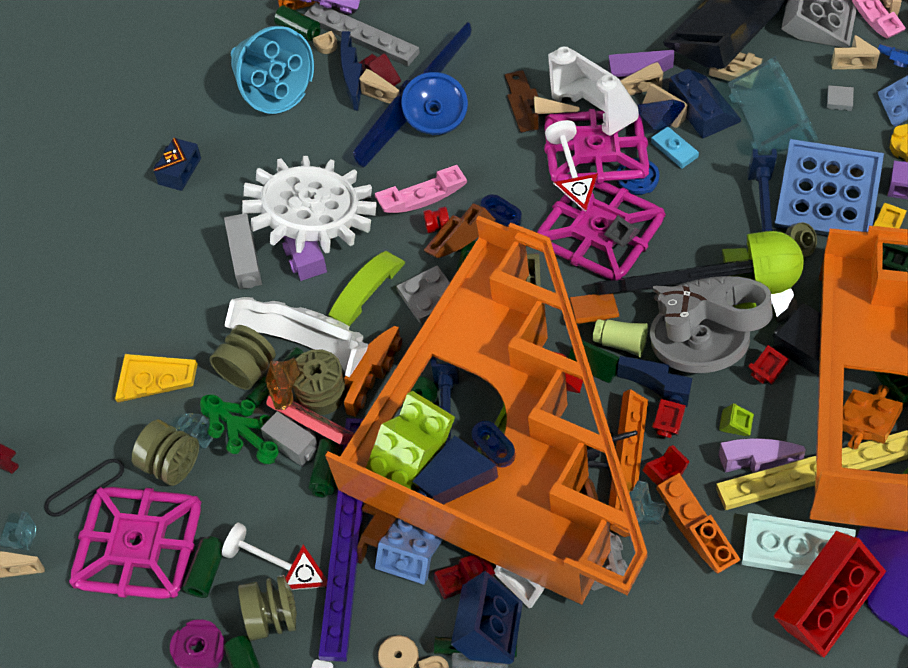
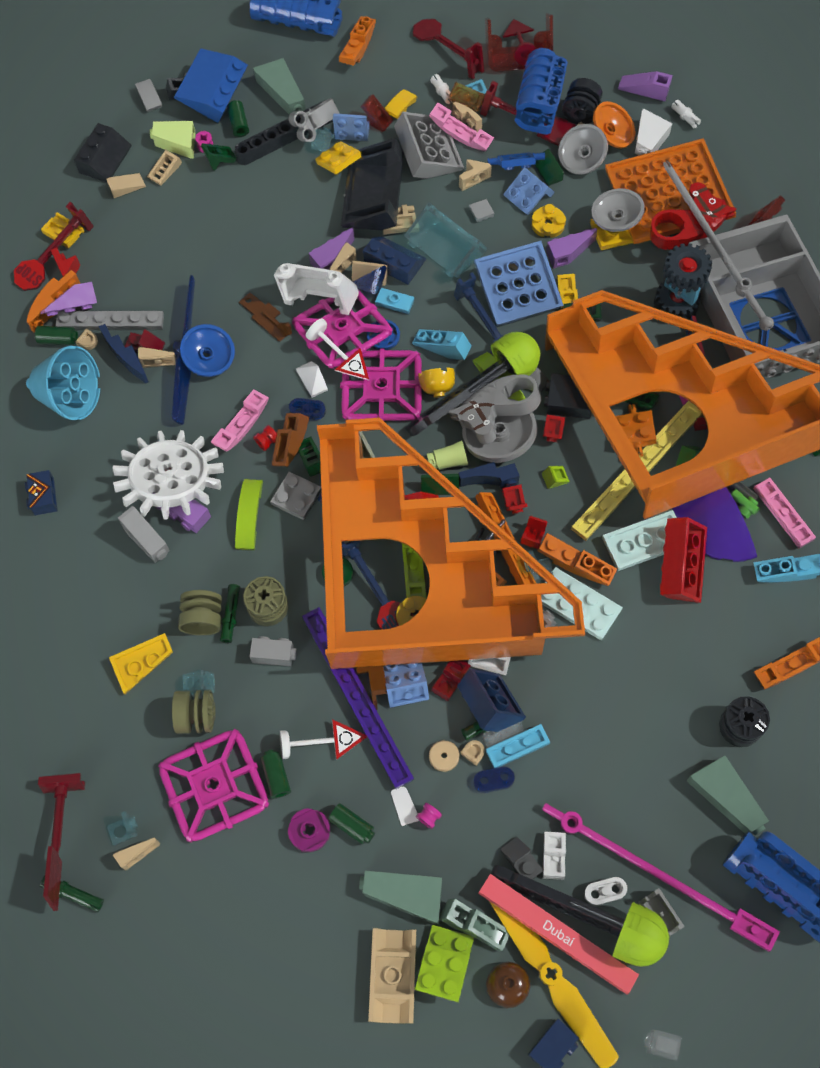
camera: 35 degrees left, 10 degrees up
(77, 481) = (153, 772): black piece -> none
(214, 407) = (208, 660): green plant -> none
(267, 607) = (342, 776): olive wheel -> none
(280, 382) = (244, 615): clear orange slope -> none
(300, 326) = (228, 566): white windscreen -> none
(315, 422) = (279, 630): coral tile -> none
(321, 479) = (311, 658): dark green brick -> none
(373, 365) = (292, 569): orange slope -> none
(410, 440) = (374, 611): lime bracket -> none
(455, 472) = (416, 615): dark blue slope -> none
(495, 445) = (429, 580): clear blue plate -> none
(528, 185) = (312, 378): none -> white slope
(545, 106) = (287, 313): tan slope -> none
(594, 307) = (421, 443): orange piece -> none
(621, 231) = (401, 382): dark grey slope -> none
(662, 249) = (437, 381): none -> yellow cylinder
(672, 578) = (598, 610): none -> light aqua plate
(702, 216) = (445, 343): none -> medium azure slope
(758, 454) = (585, 492): lavender slope -> none
(804, 236) = (521, 324): olive plate -> none

